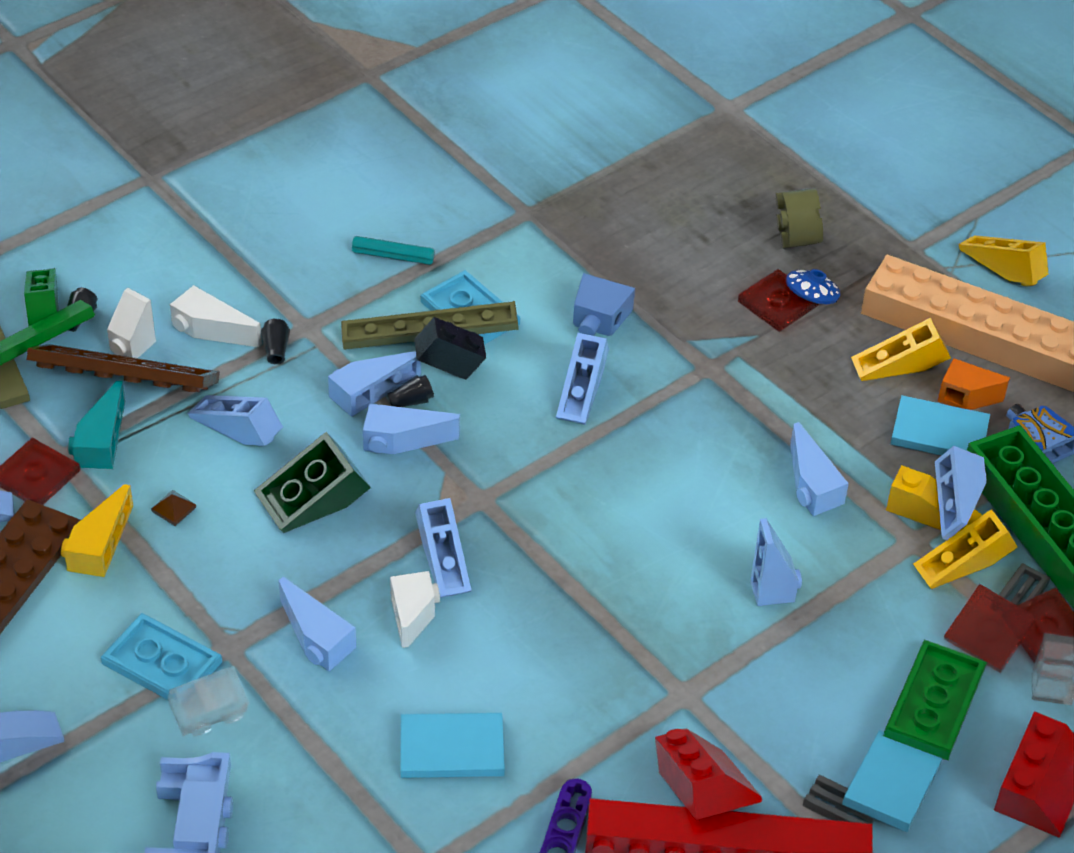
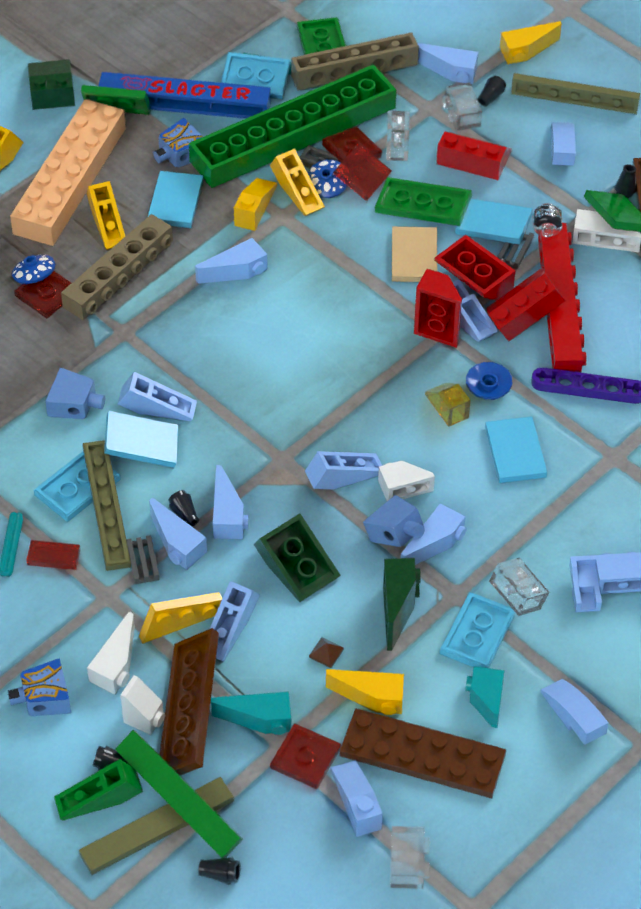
camera: 95 degrees left, 5 degrees up
(56, 647) = (486, 692): none -> teal slope
(184, 262) = (42, 690): none -> torso
(211, 562) = (399, 594): none -> dark green slope
(247, 362) = (178, 614): none -> yellow wing
(275, 339) = (137, 606): black cone -> none
(339, 582) = (394, 523): none -> medium blue torso
(344, 353) = (140, 543): none -> dark grey tile
(371, 283) = (53, 555): none -> clear red tile
(450, 348) = (144, 477): black brick -> none
(518, 357) = (141, 439): none -> tile
(543, 673) = (450, 402): none -> clear yellow slope
(573, 714) = (489, 380): none -> blue dish
(691, 659) = (437, 308): none -> red slope
(716, 716) = (473, 316): none -> light blue slope
(773, 570) = (342, 274): light blue slope -> none
(777, 729) = (477, 268): none -> red slope
(813, 360) = (117, 267): none -> dark tan brick
(832, 677) = (413, 252): none -> tan tile
(865, 823) = (547, 220): none -> head
(959, 487) = (258, 176): light blue slope -> none
(966, 585) = (326, 186): none -> blue dish
(972, 386) = (134, 181): orange slope -> none

